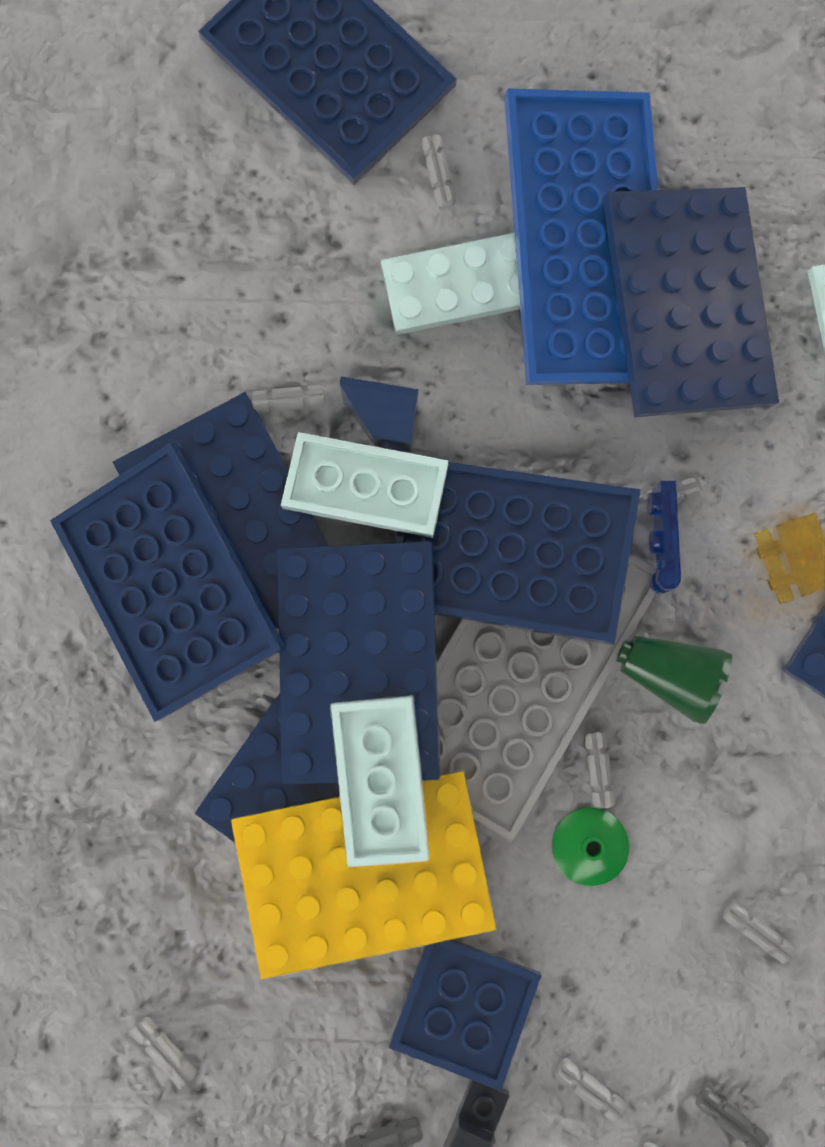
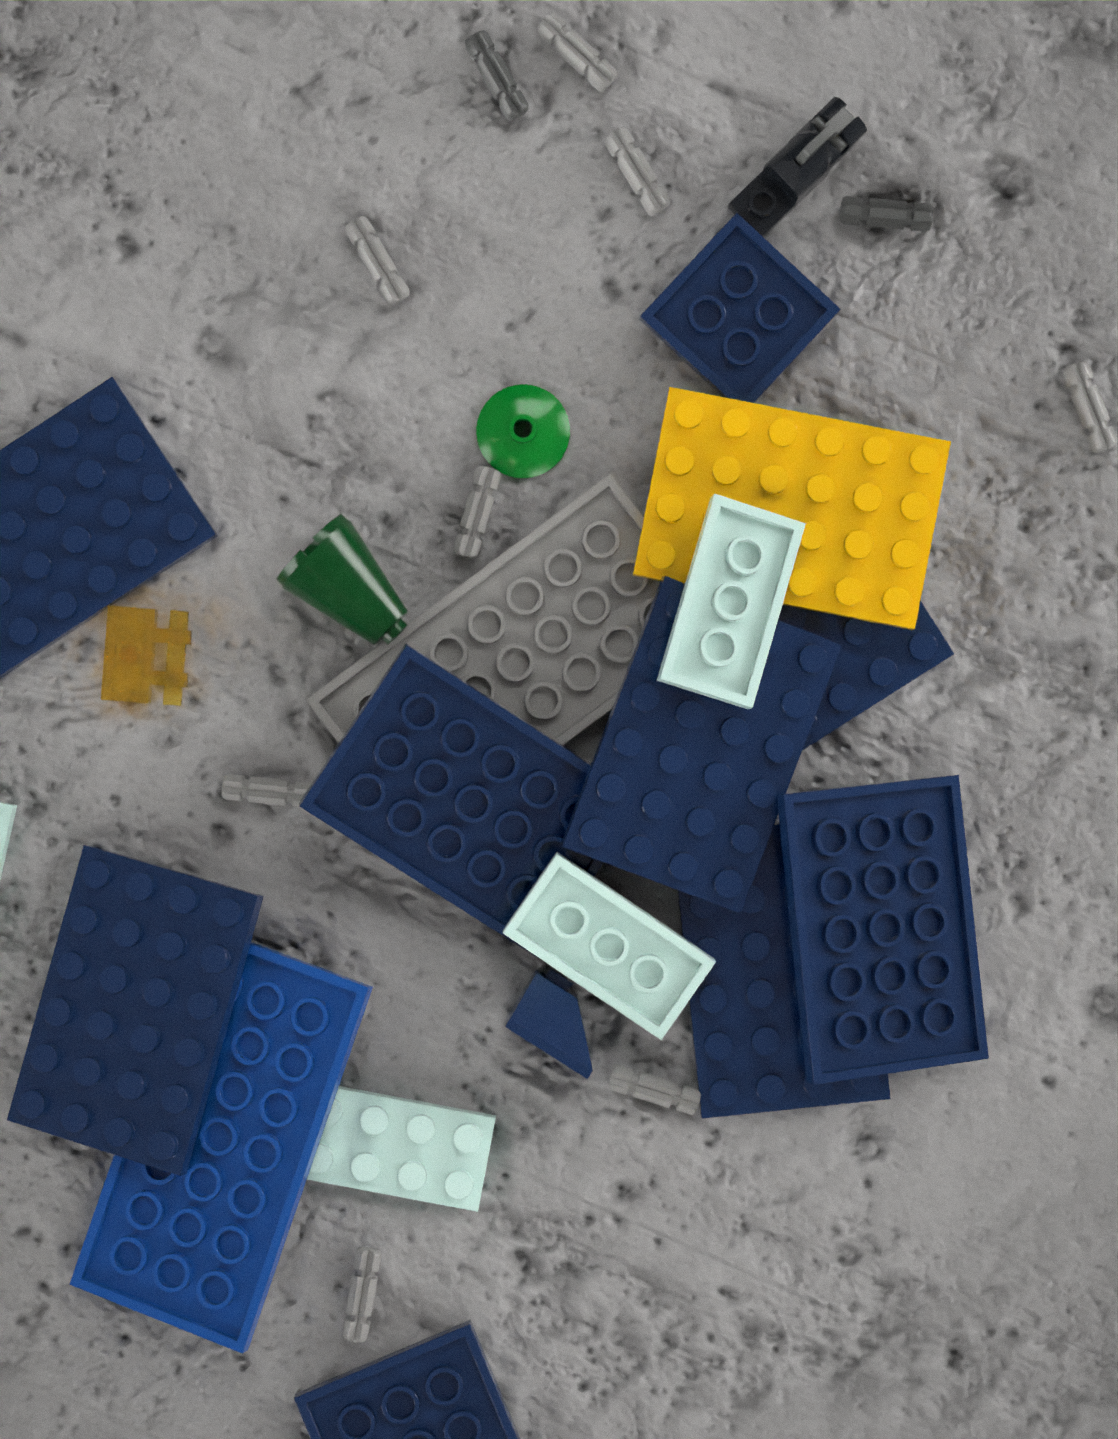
camera: 160 degrees left, 5 degrees up
(664, 537) = (293, 739): clear blue plate -> none

